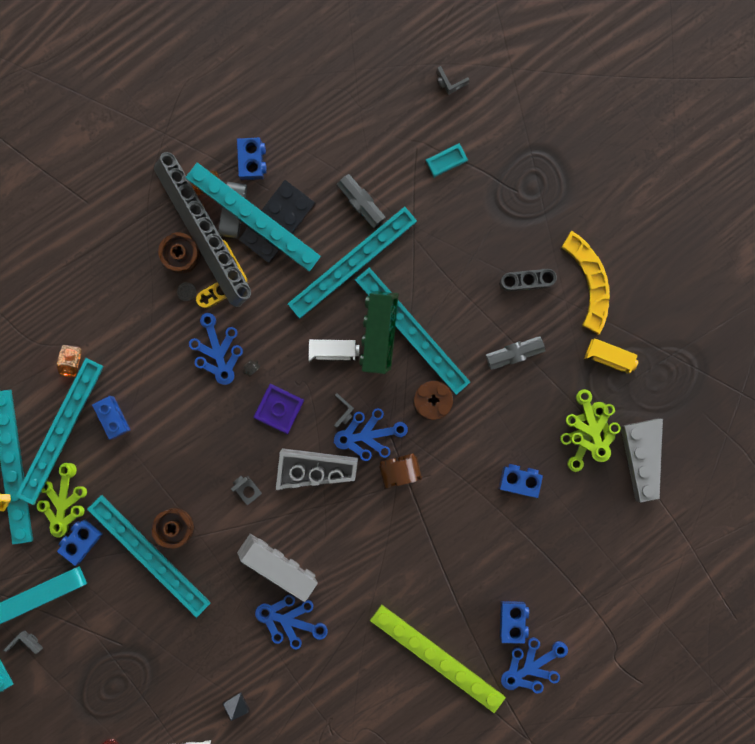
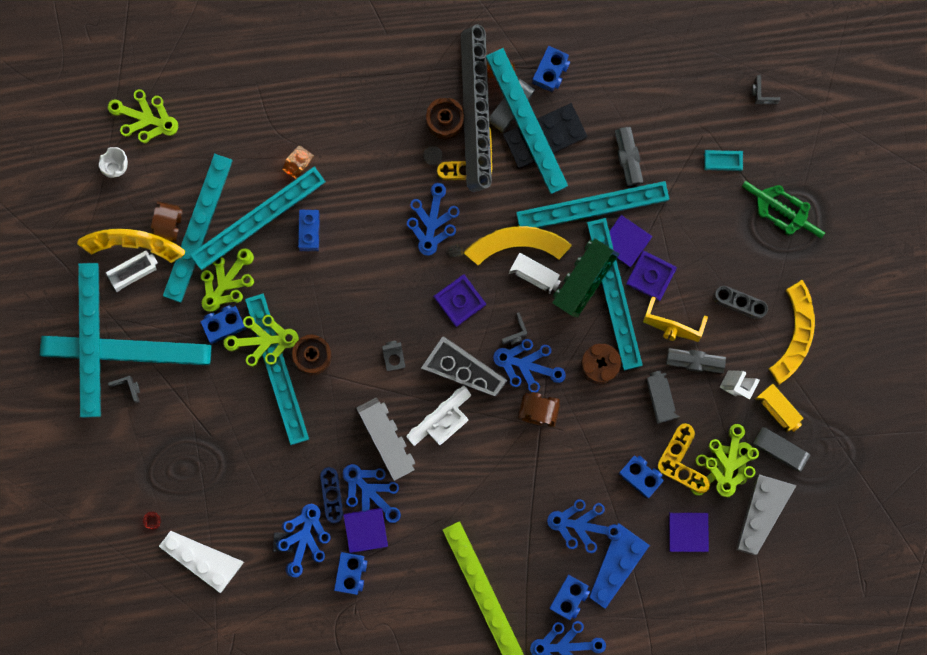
camera: 25 degrees right, 5 degrees down
(124, 537) = (264, 340): none -> lime plant
(251, 692) = (304, 537): none -> blue plant
(269, 650) = (334, 480): none -> dark blue beam
(300, 325) = (517, 237): none -> yellow tile
(302, 657) = (365, 530): none -> dark purple tile
(304, 704) = (344, 573): none -> blue brick
(320, 525) = (443, 421): none -> white bracket
(399, 276) = (628, 240): none -> dark purple tile
(436, 297) = (651, 275): none -> dark purple tile
(479, 335) = (672, 327): none -> yellow piece
(490, 553) = (581, 525): none -> blue plant
(501, 401) = (661, 397): none -> dark grey window
(540, 566) = (617, 565): none -> blue wing
(541, 177) = (766, 197): none -> green bar
(543, 450) = (675, 461): none -> yellow beam
(566, 355) = (738, 385): none -> white window
(587, 507) = (688, 532): none -> dark purple tile
(631, 392) = (781, 449): none -> dark grey beam

